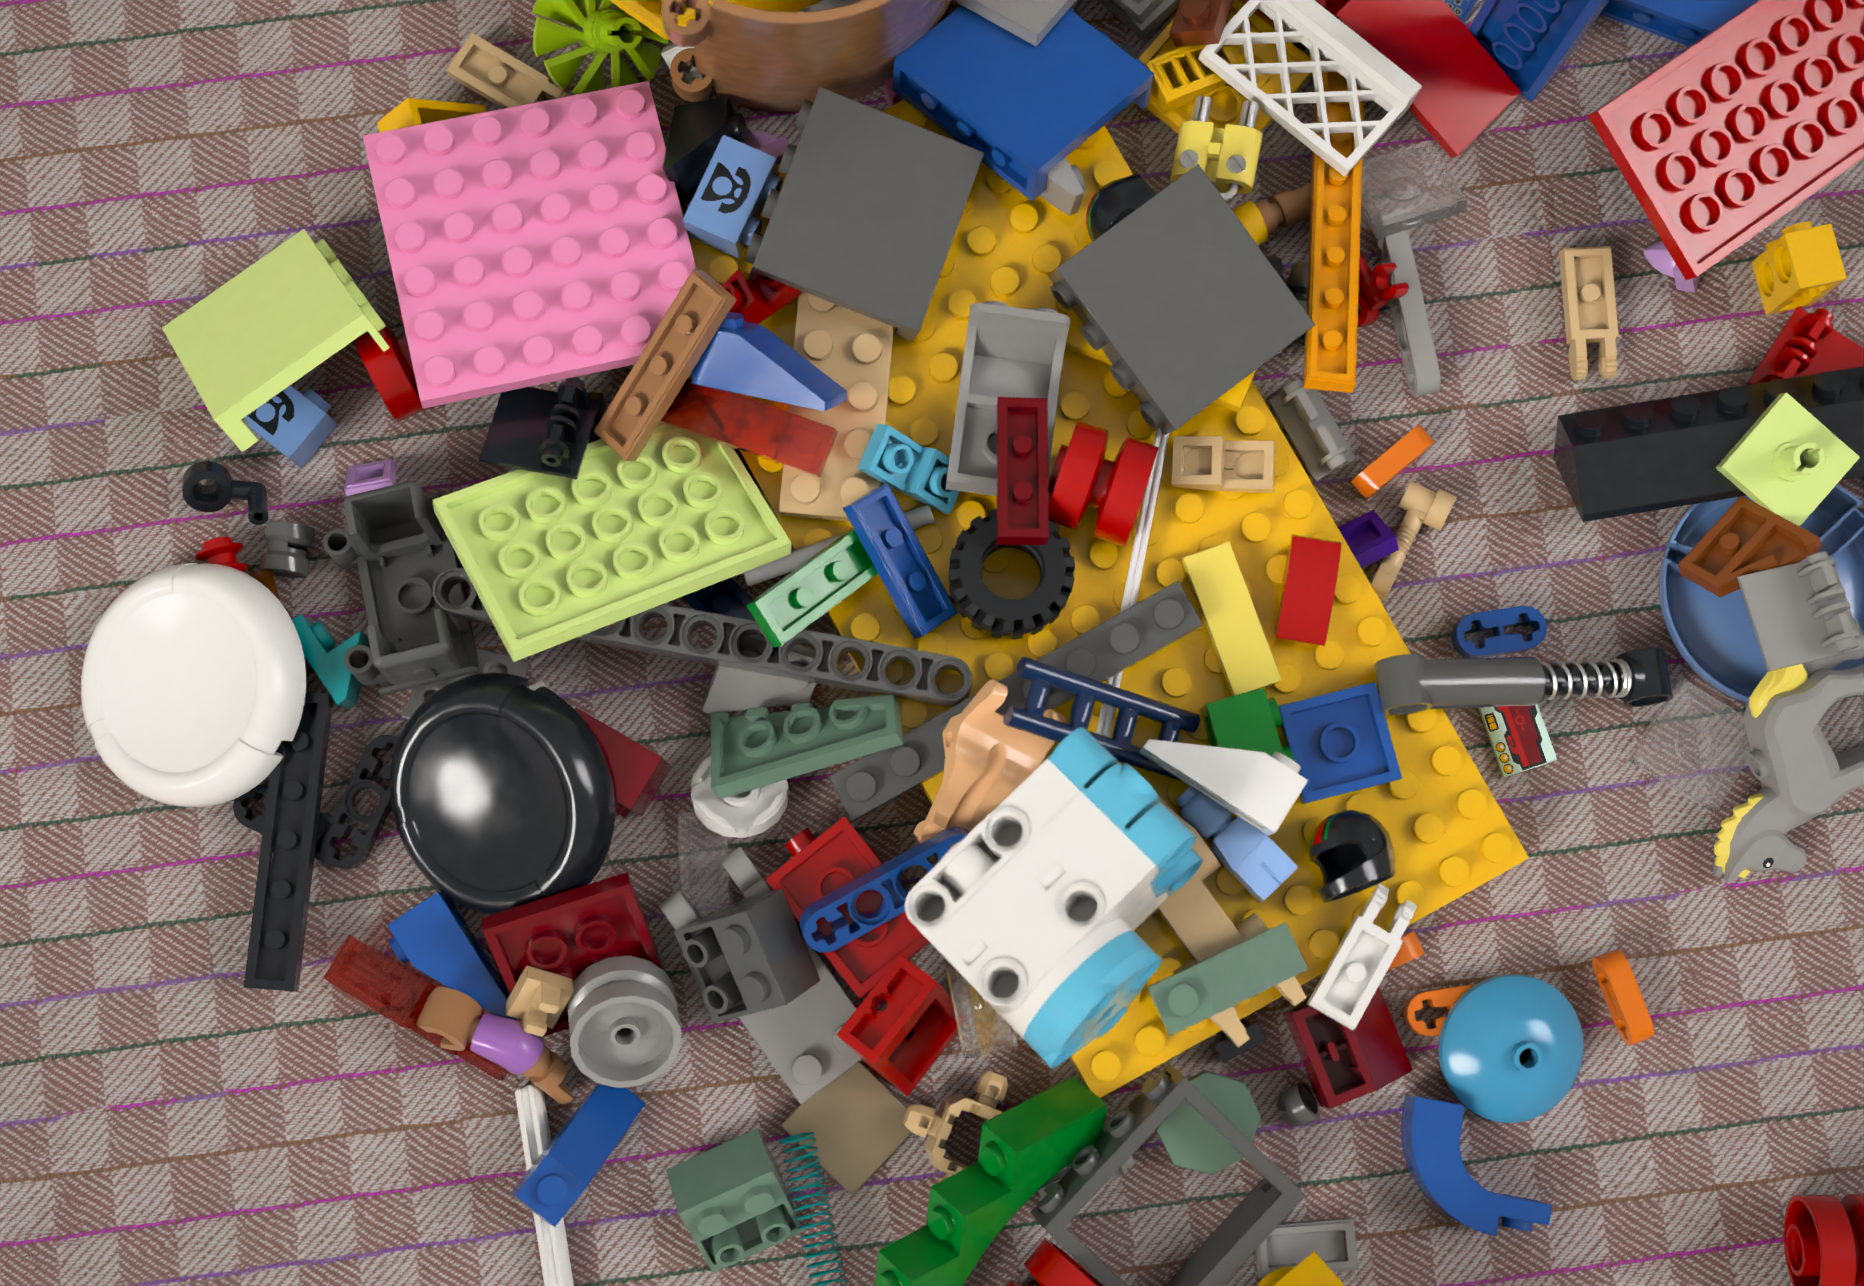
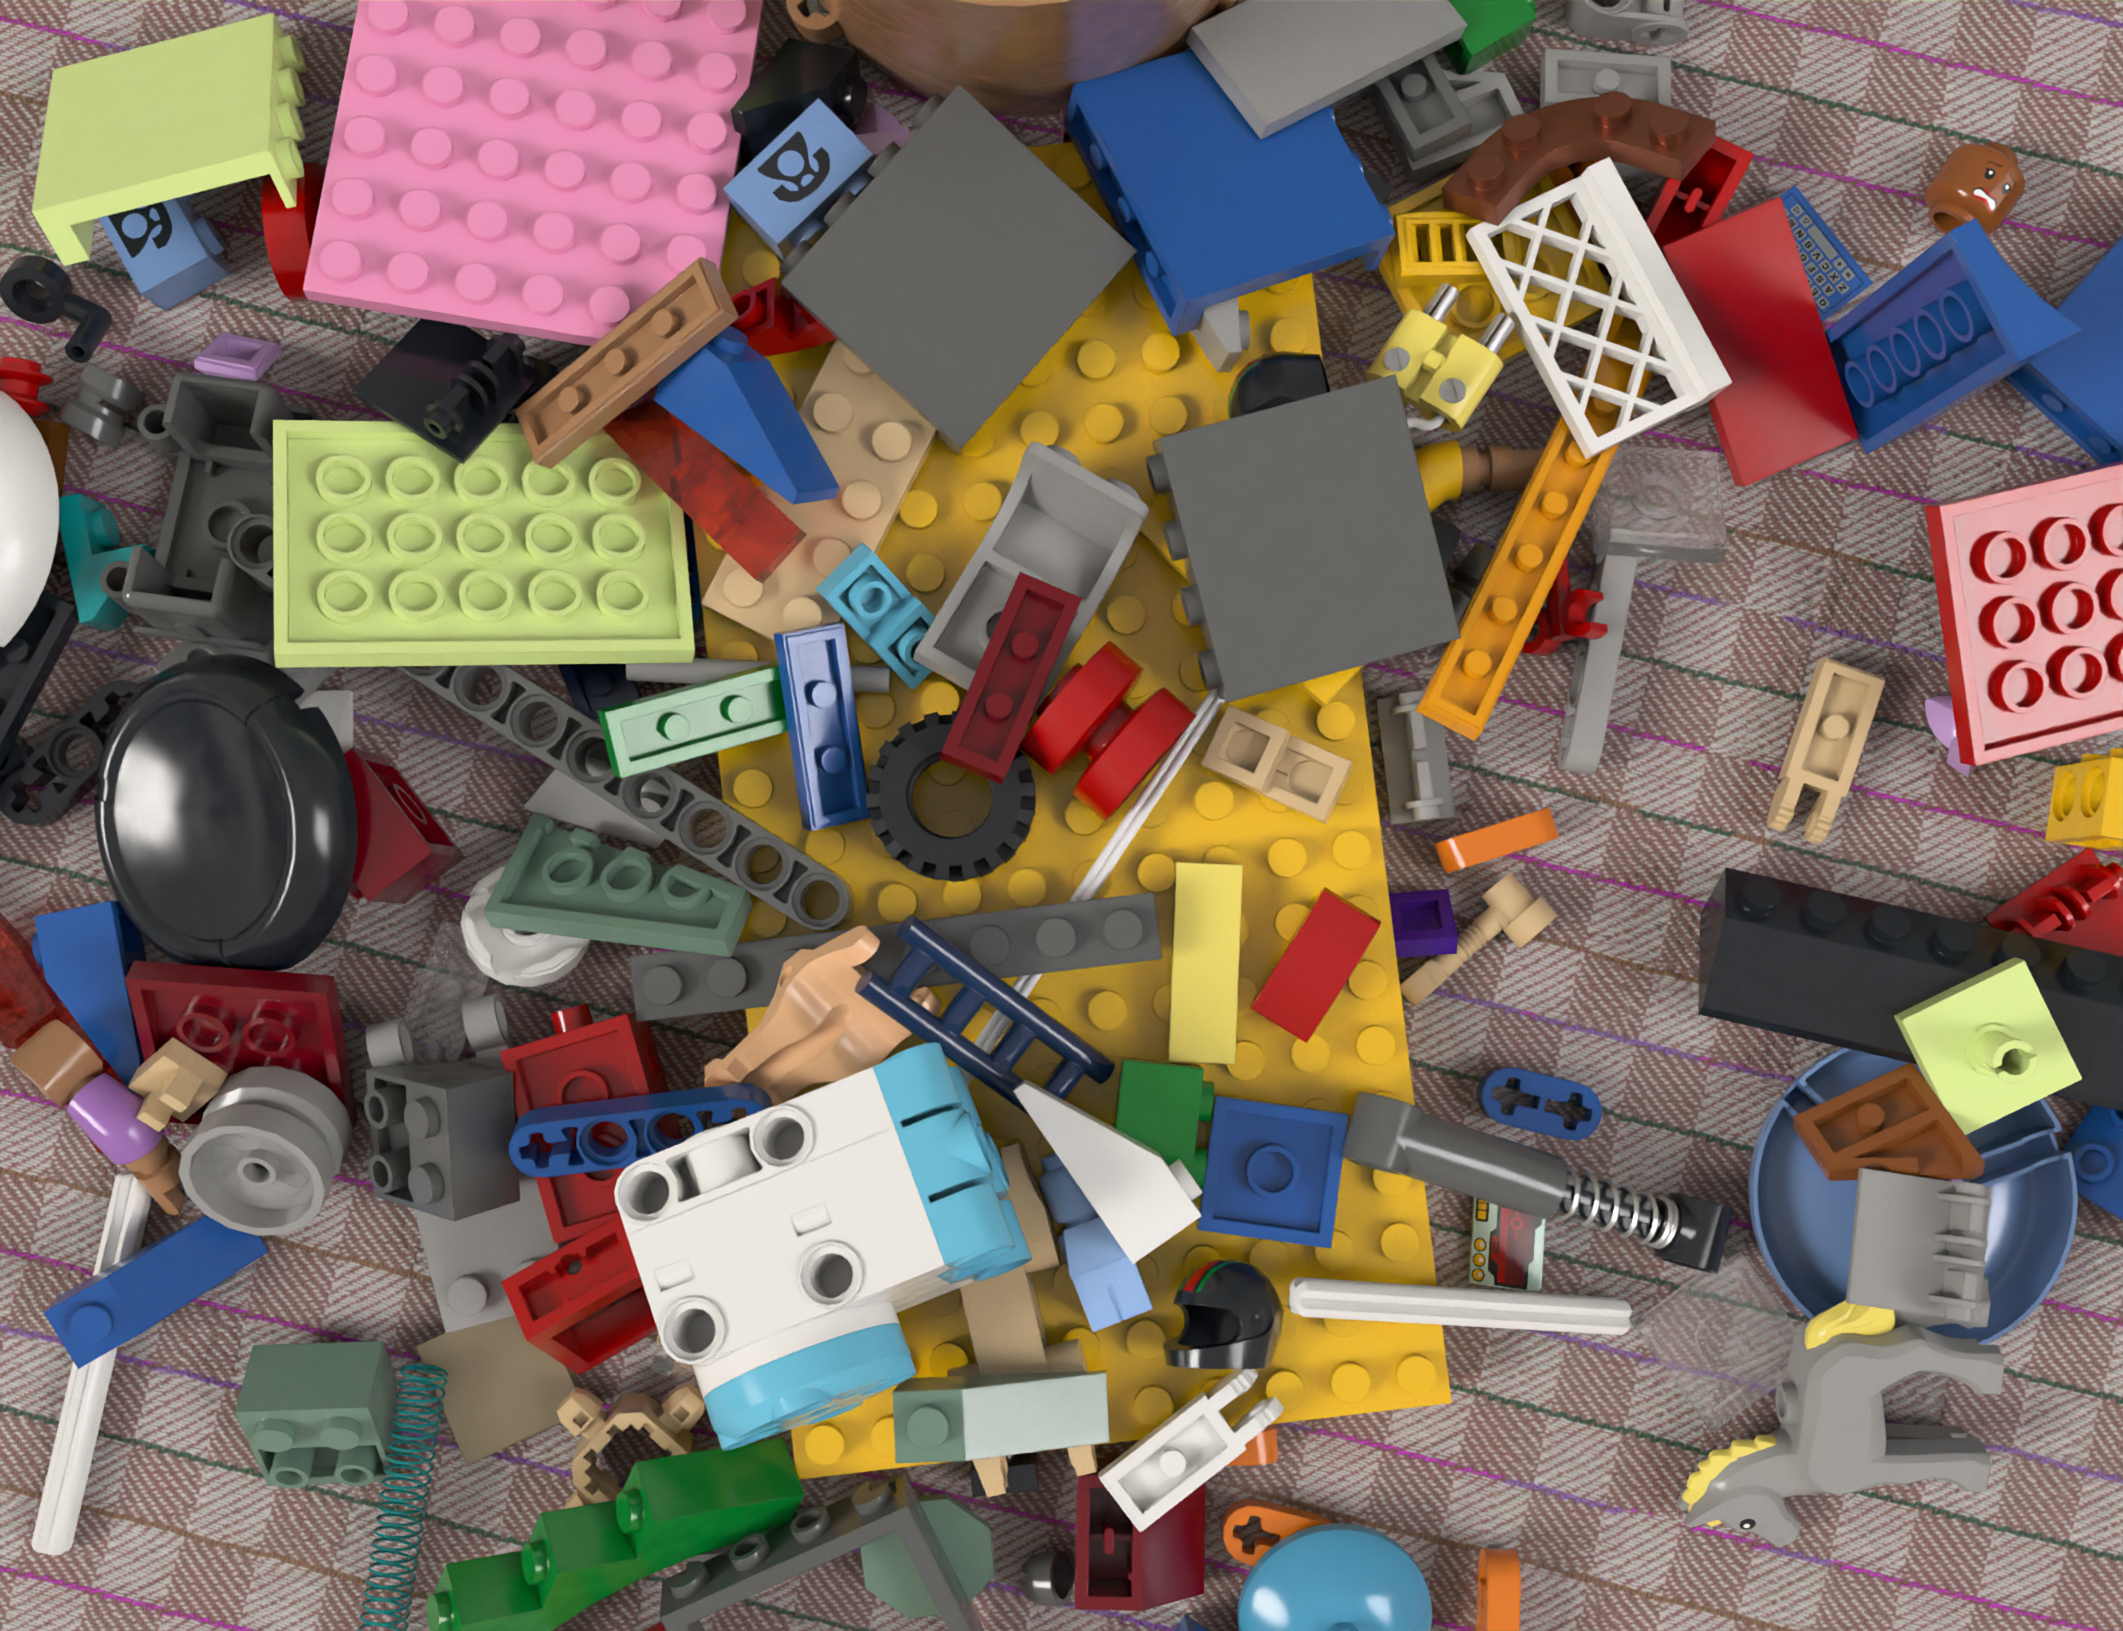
camera: 25 degrees right, 5 degrees up
(1506, 786) = (1457, 1306): none -> white axle

